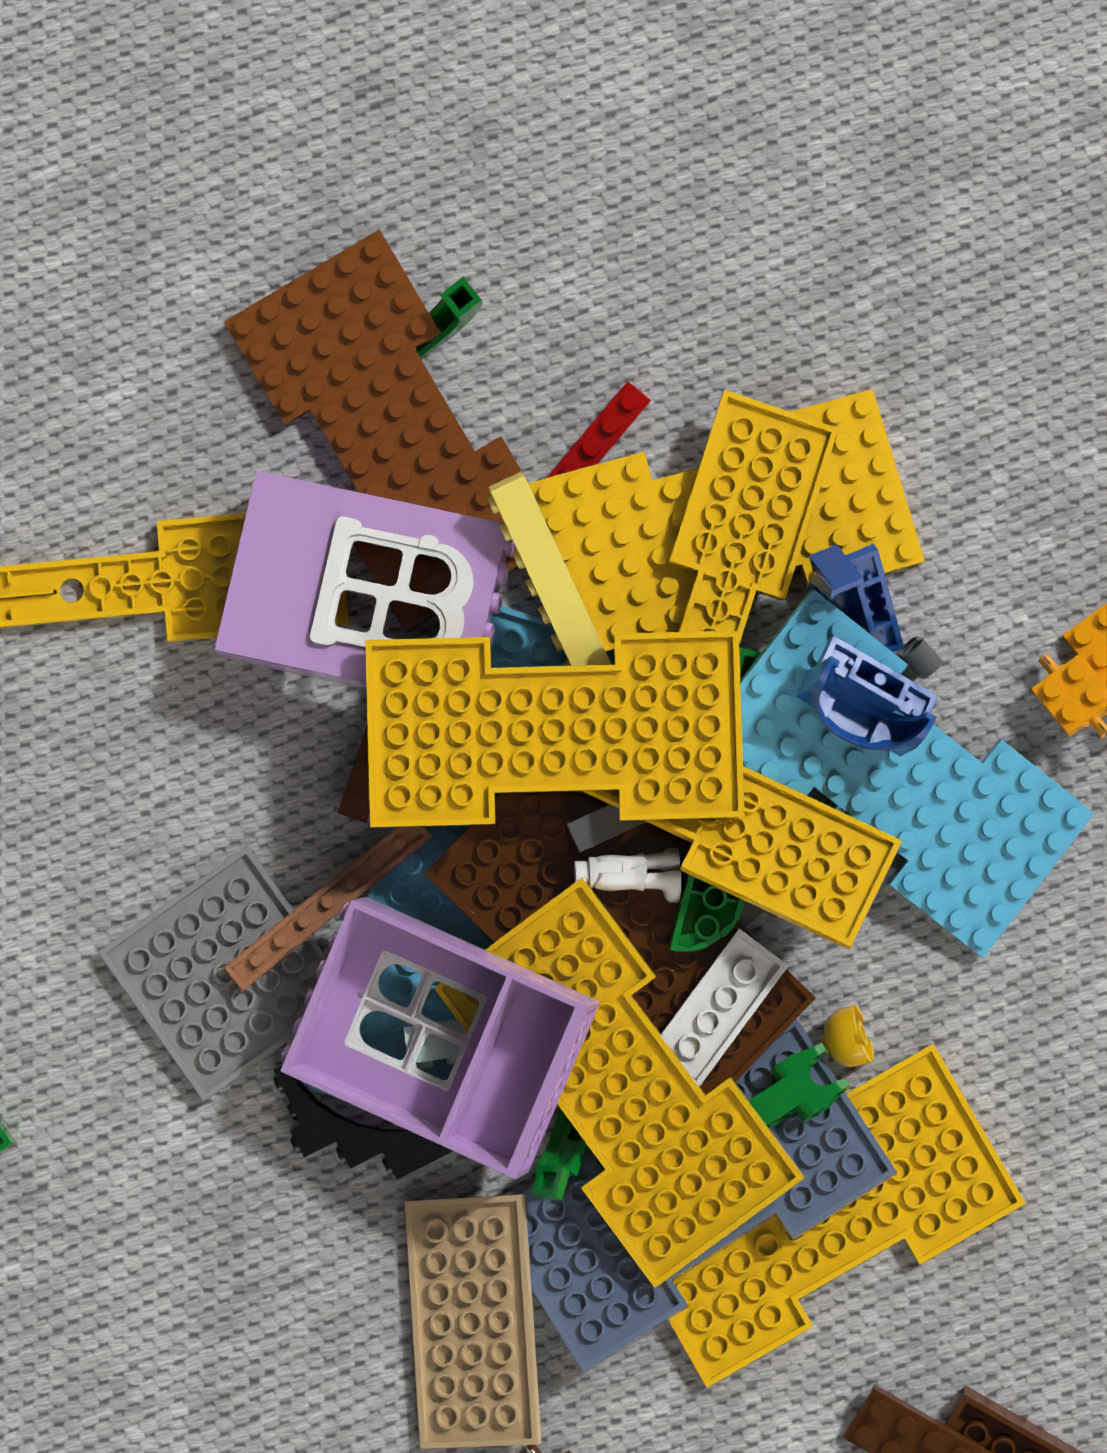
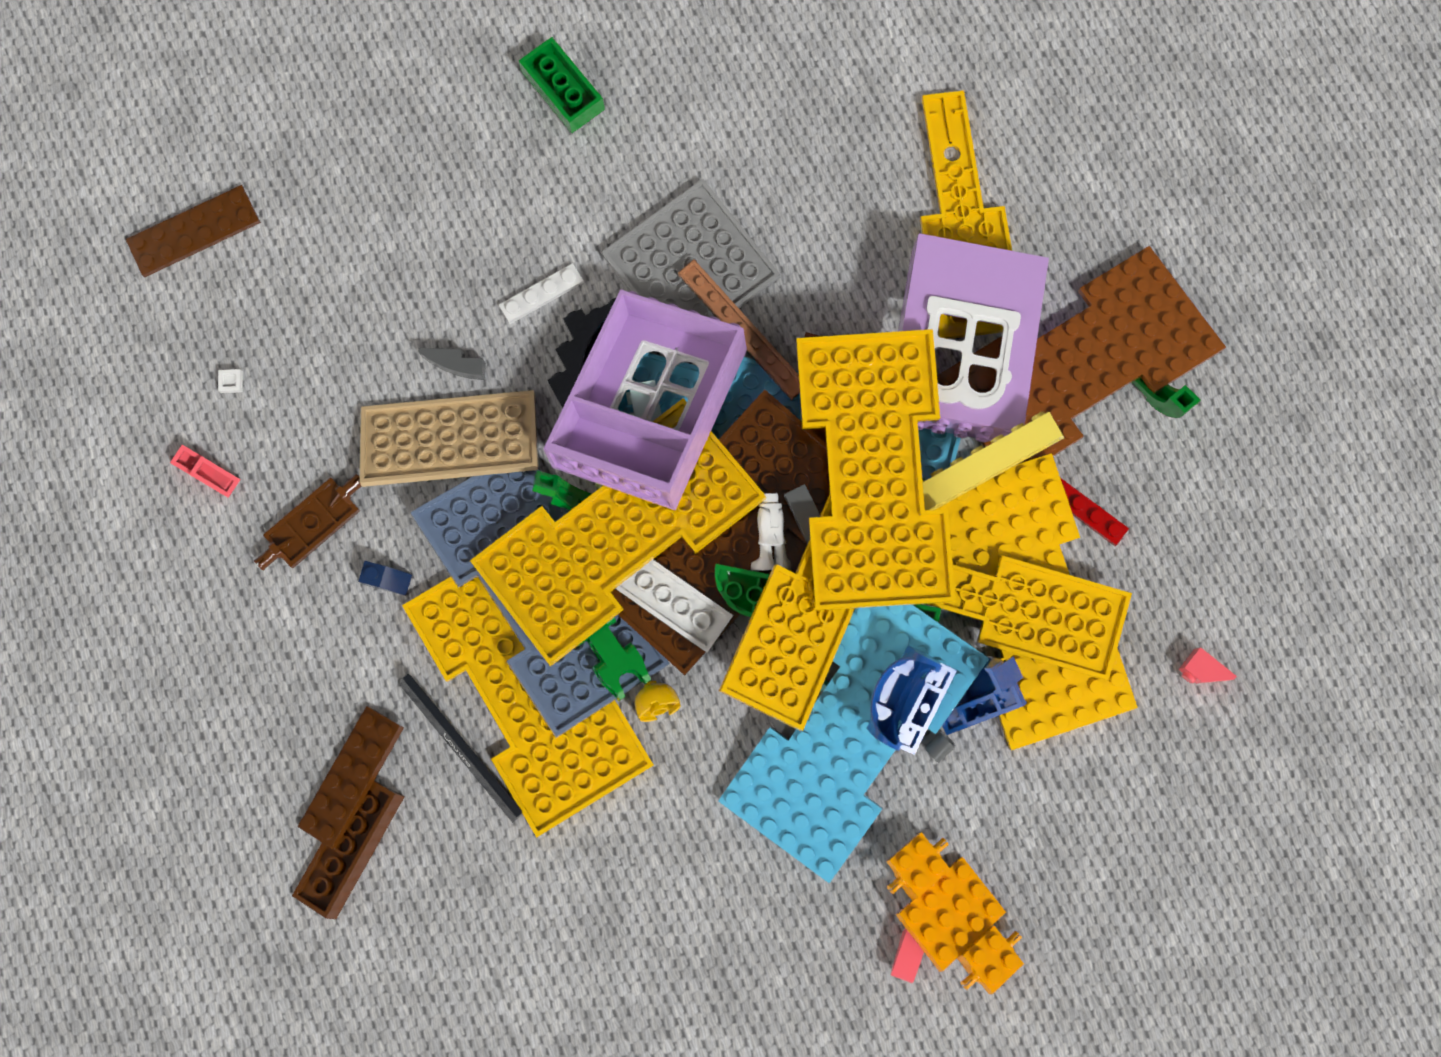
camera: 95 degrees right, 5 degrees down
(259, 1189) = (541, 293): none -> white plate
(360, 1314) = (454, 362): none -> dark grey slope
(668, 1411) = (385, 578): none -> dark blue slope
(823, 297) = (1203, 668): none -> coral slope
(903, 1306) = (460, 748): none -> black tile

